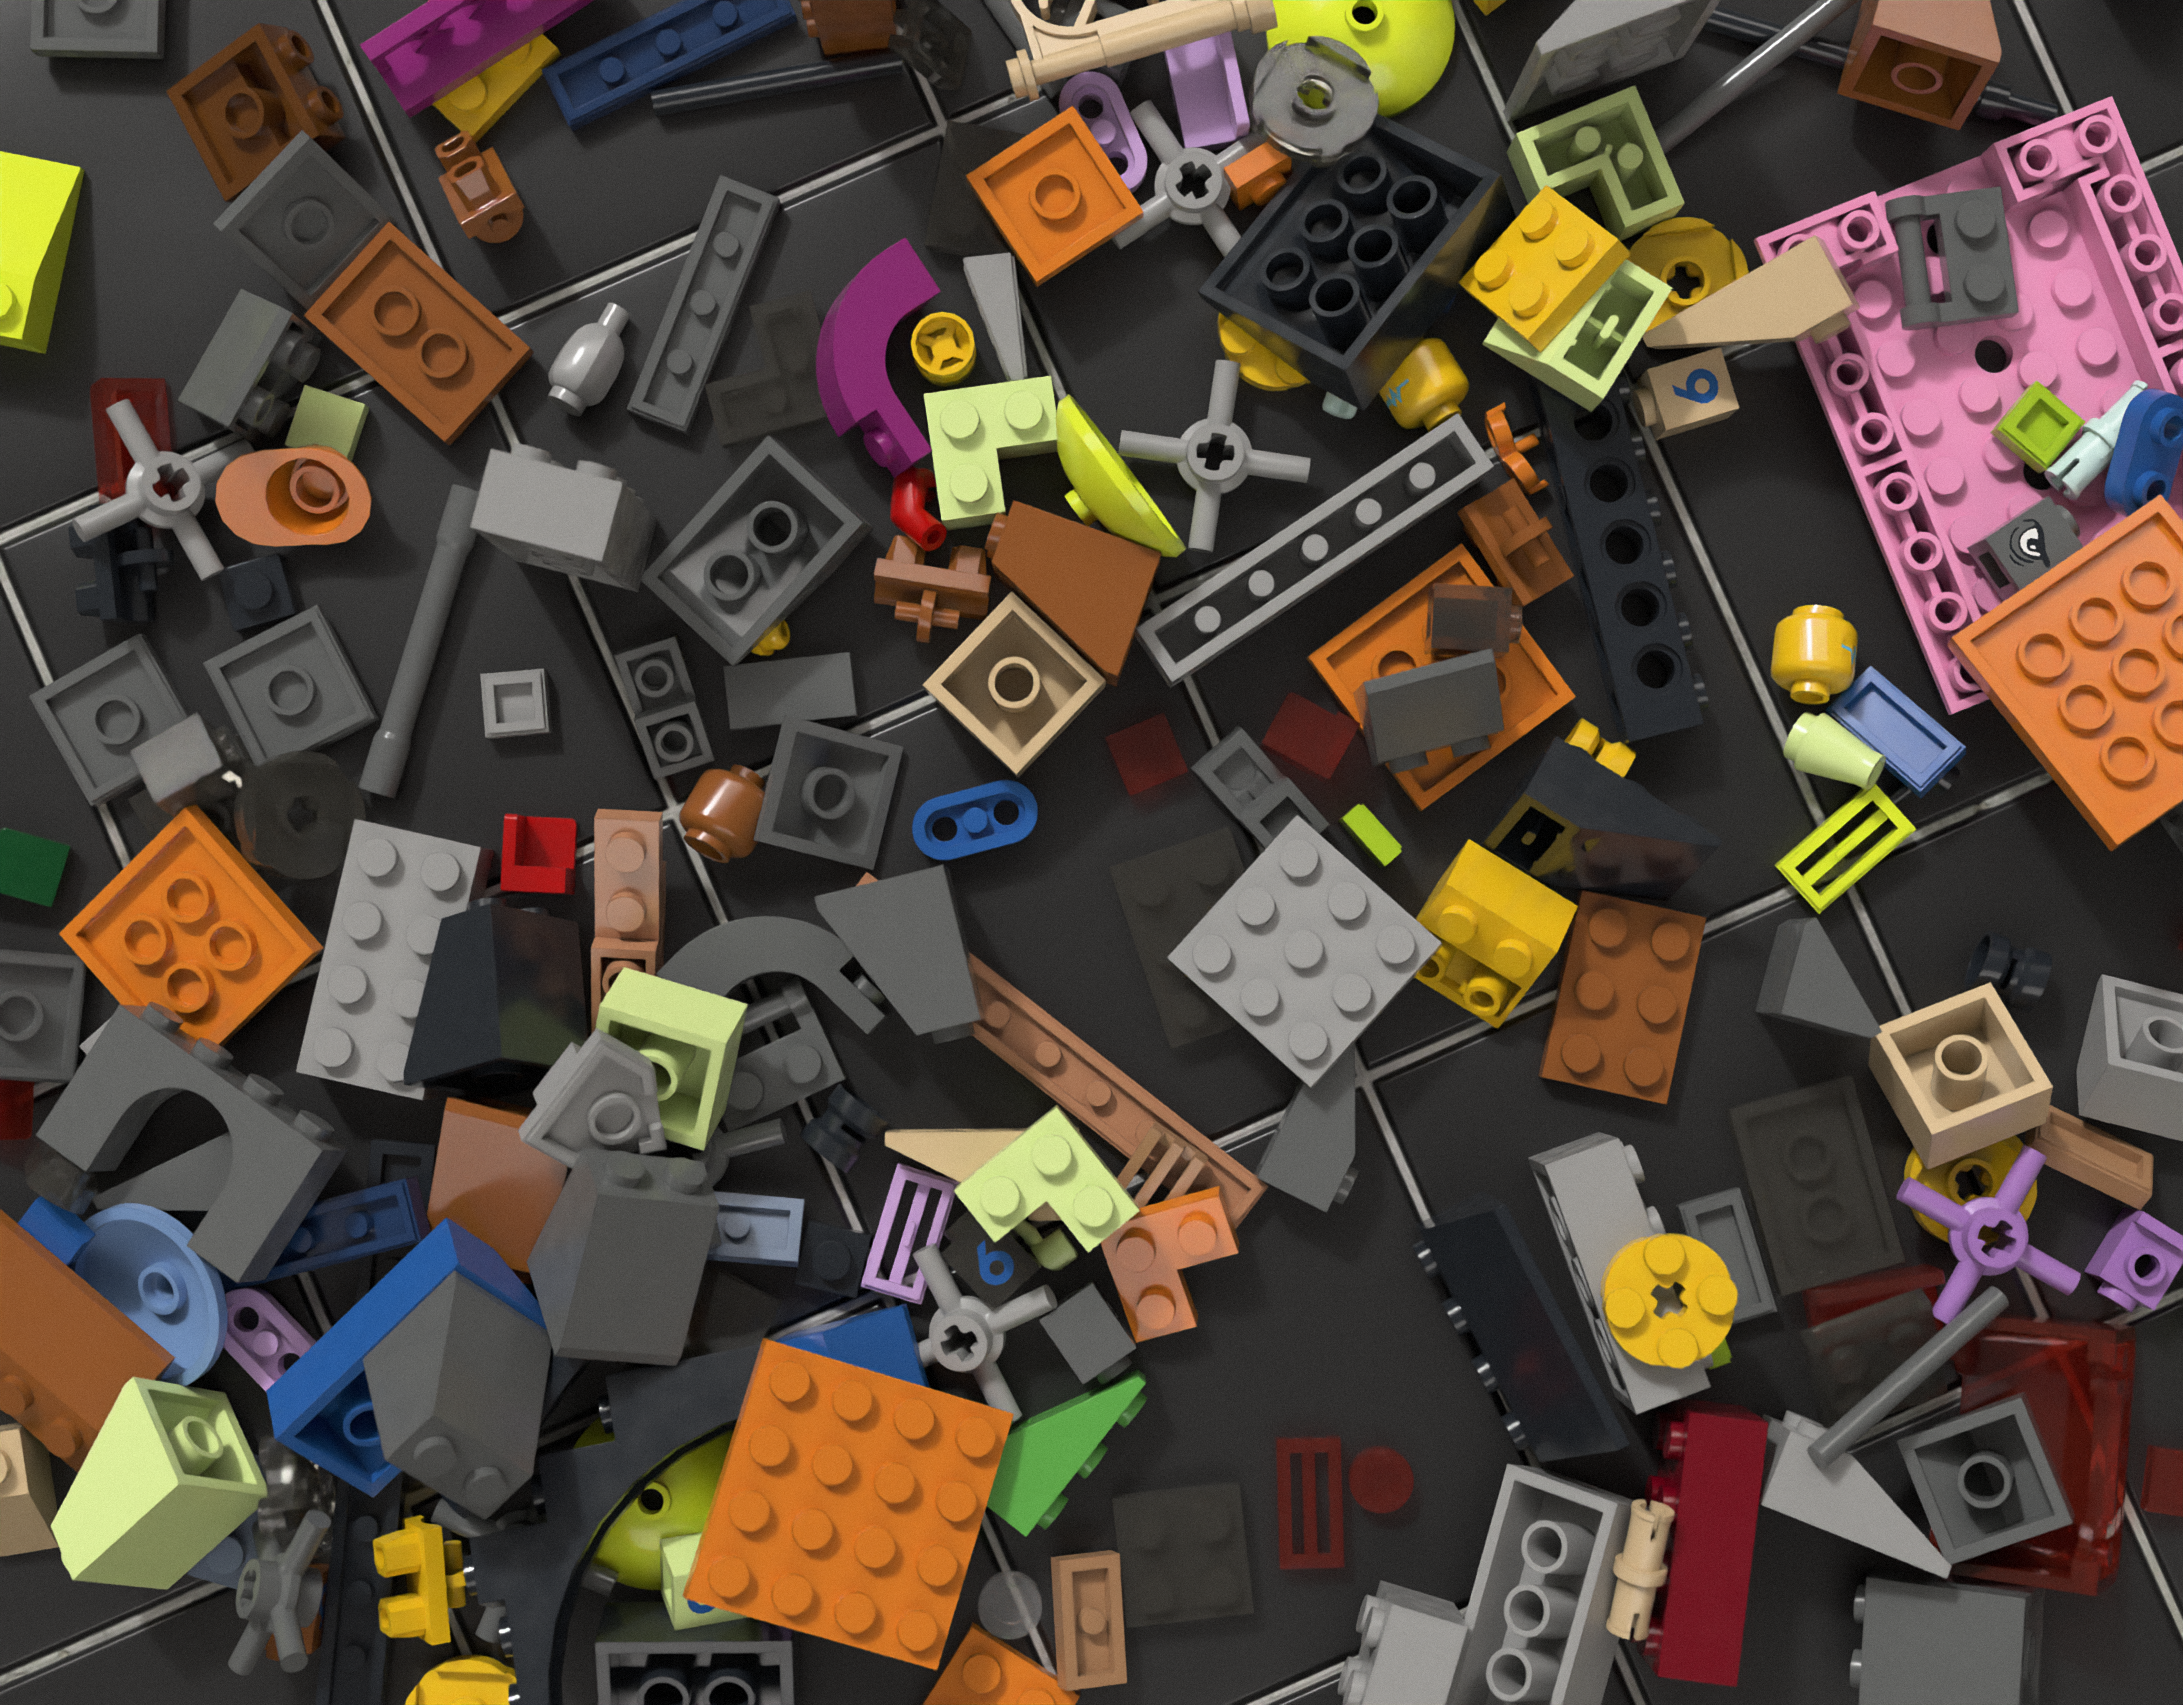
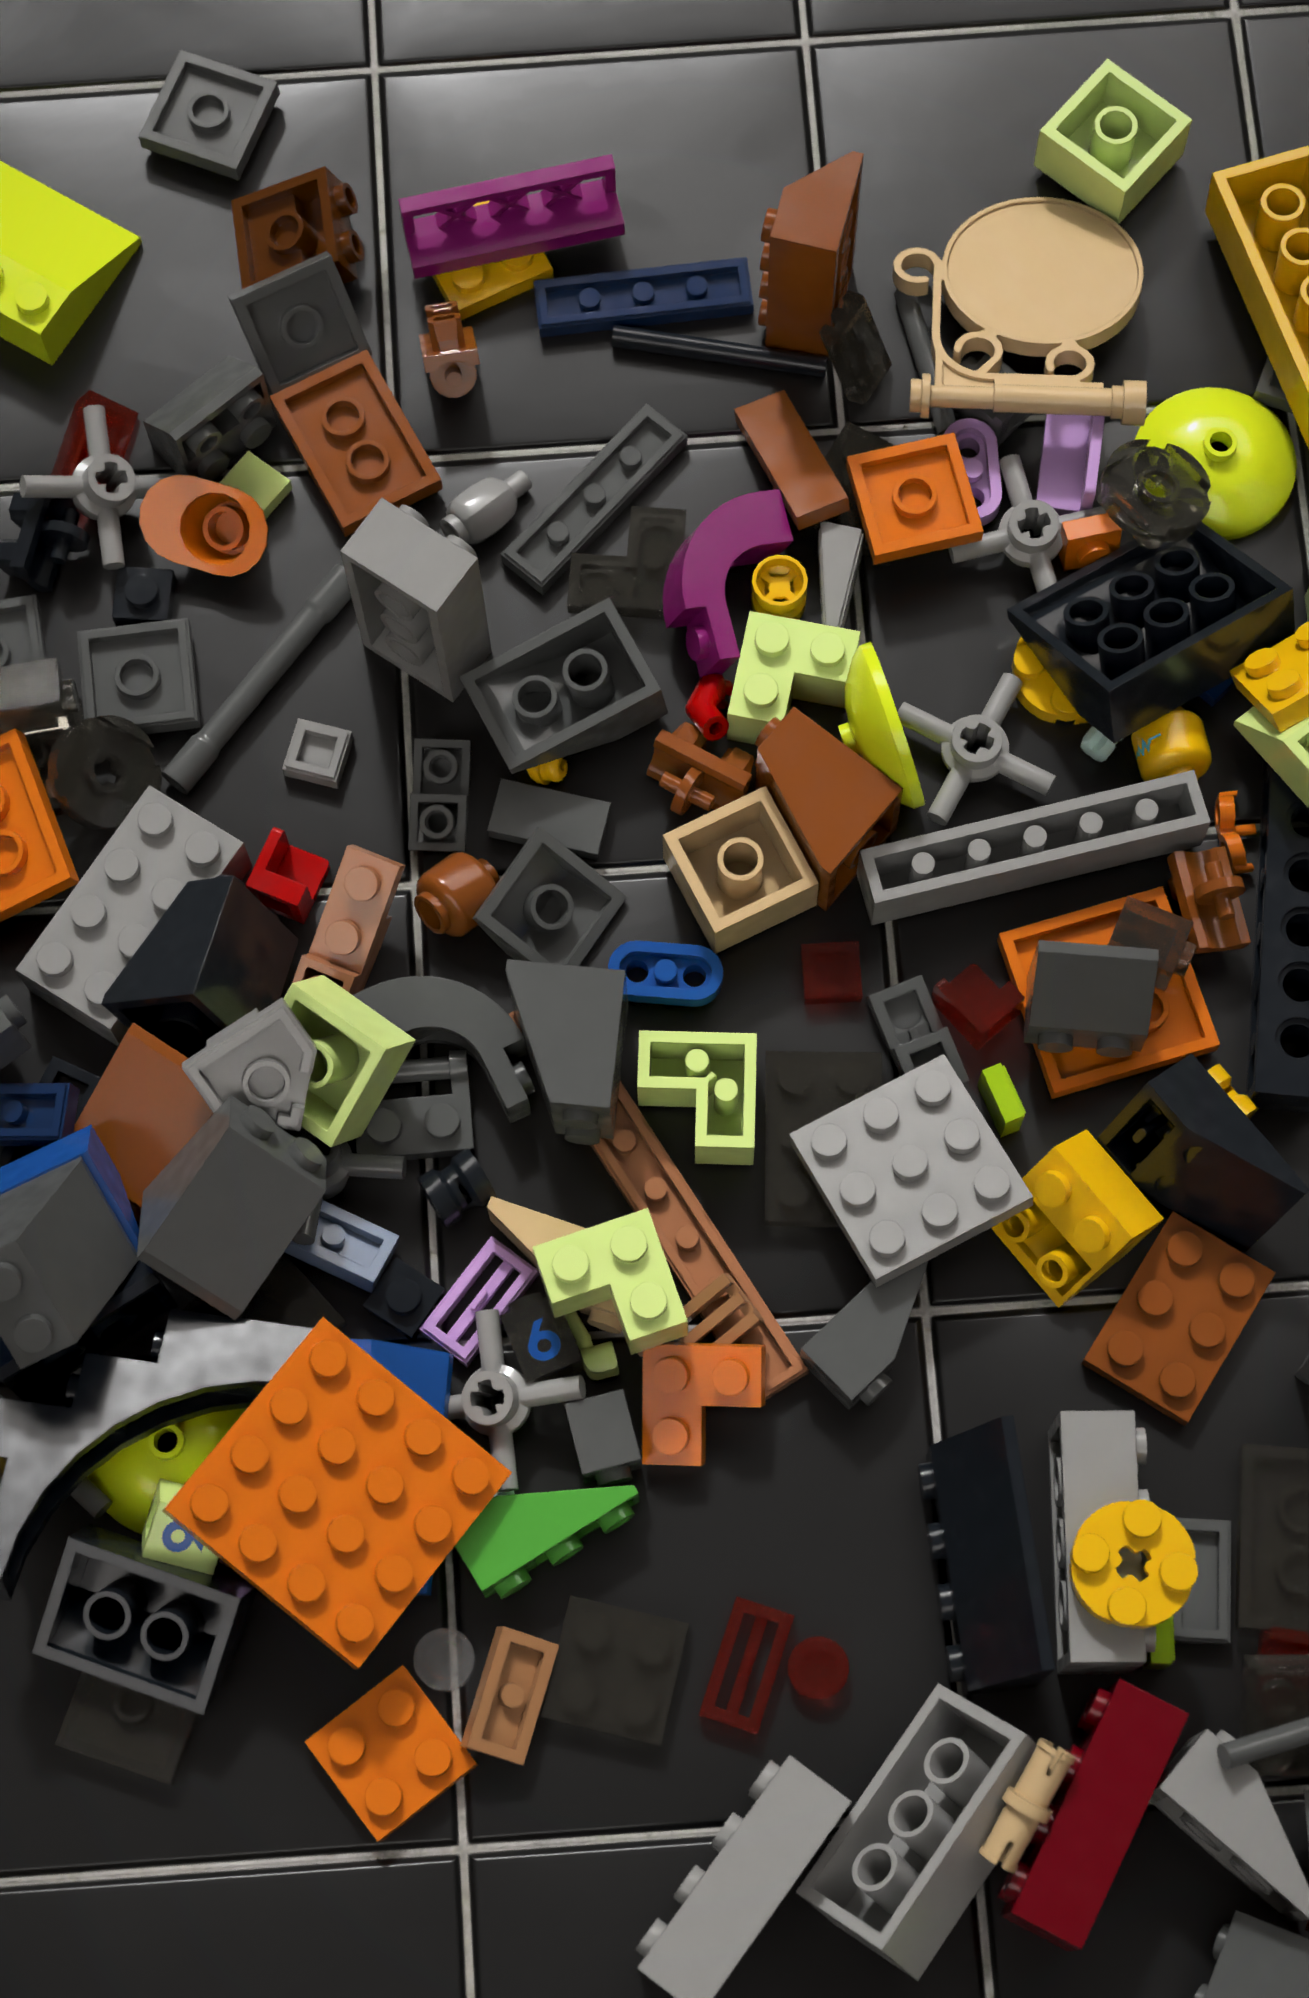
camera: 25 degrees right, 15 degrees down
(904, 191) = (791, 460): none -> dark orange tile
(1069, 919) = (706, 1073): none -> yellowish green brick

